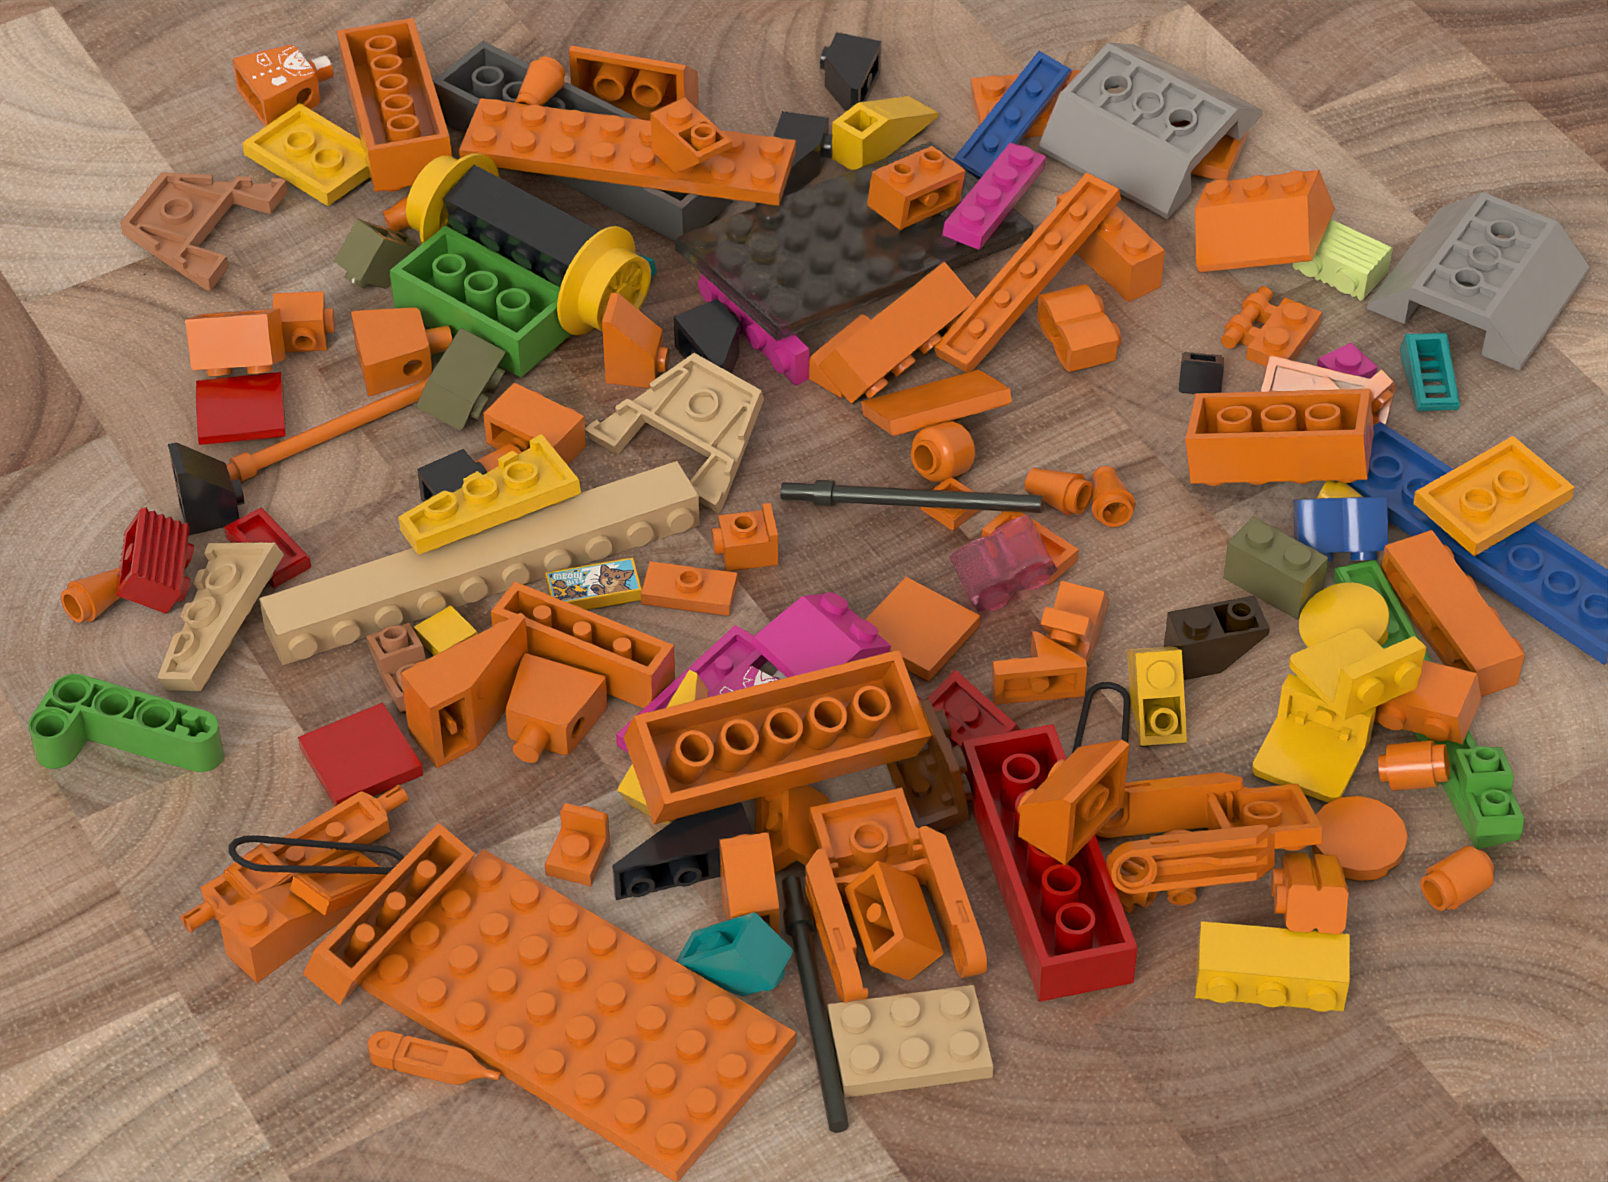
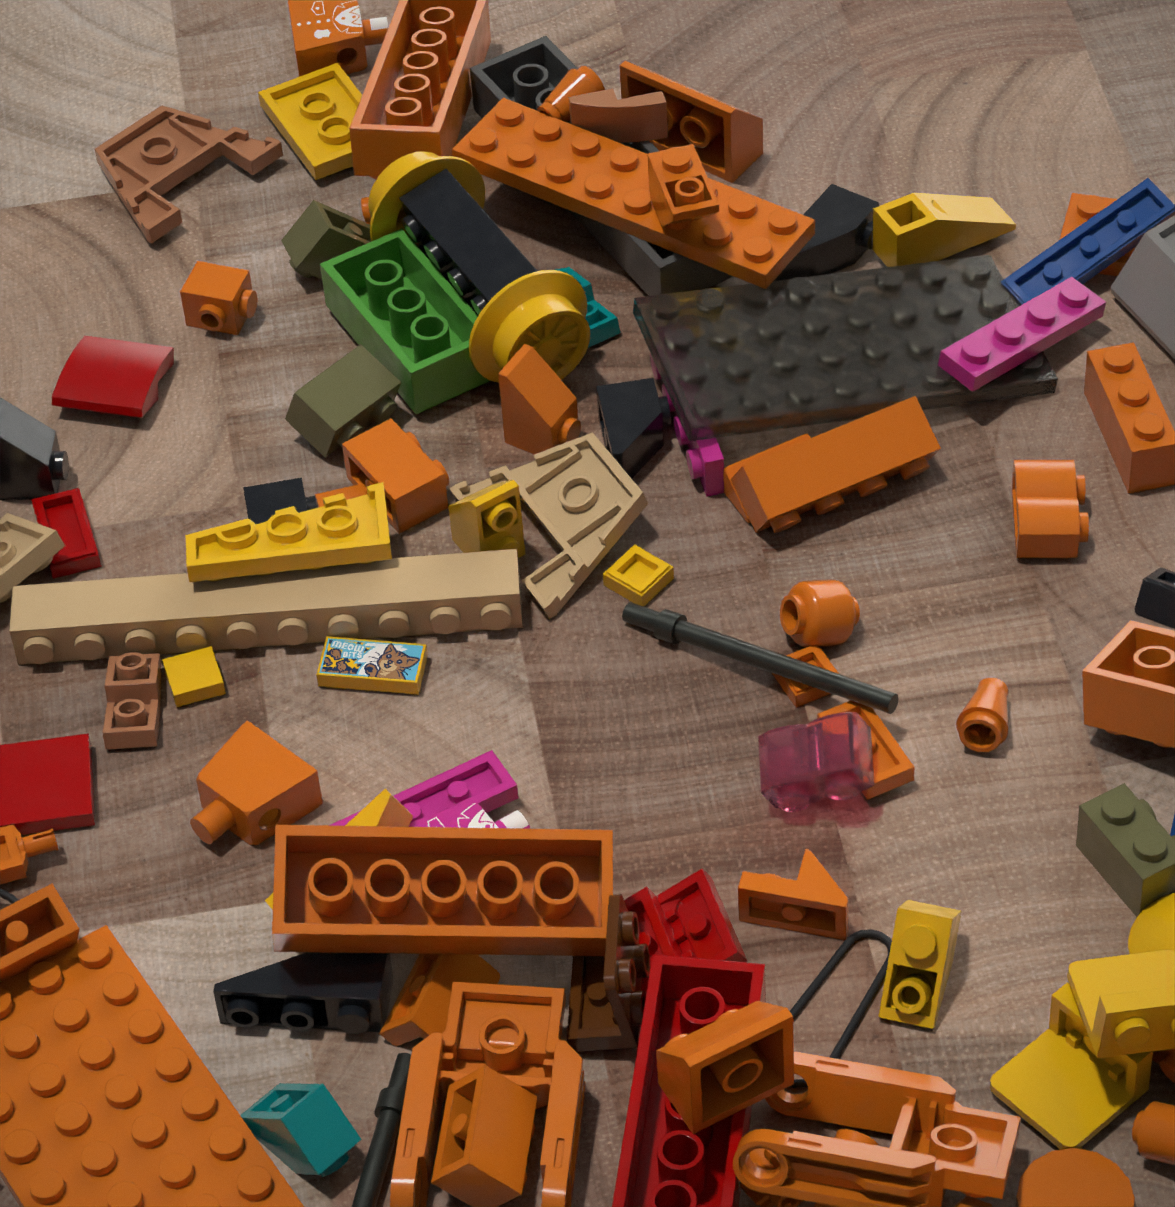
camera: 25 degrees right, 0 degrees up
(235, 340) = (135, 302): orange brick -> none
(246, 465) = (86, 439): orange bar -> none
(395, 347) = (294, 347): orange torso -> none
(463, 690) = (161, 742): orange slope -> none
(579, 845) = (207, 951): orange bracket -> none
(593, 94) = (623, 119): none -> nougat slope
(632, 661) = (314, 726): orange brick -> none
(638, 443) = (489, 520): none -> yellow slope
(689, 588) = (471, 695): orange plate -> none
(747, 539) = (556, 656): orange brick -> none
(749, 878) = (347, 1050): orange slope -> none
(775, 460) = (638, 576): none -> yellow tile
(817, 635) = (565, 788): dark pink slope -> none
(851, 68) = (943, 152): black slope -> none
(915, 187) = (927, 303): orange brick -> none
(923, 626) = (694, 809): orange tile -> none
(936, 402) = (839, 555): orange tile -> none
(1027, 273) = (1010, 431): orange plate -> none
(1060, 489) = (932, 692): orange cone -> none
(1076, 618) = (867, 852): orange brick -> none
(1215, 634) = (1016, 911): dark brown slope -> none

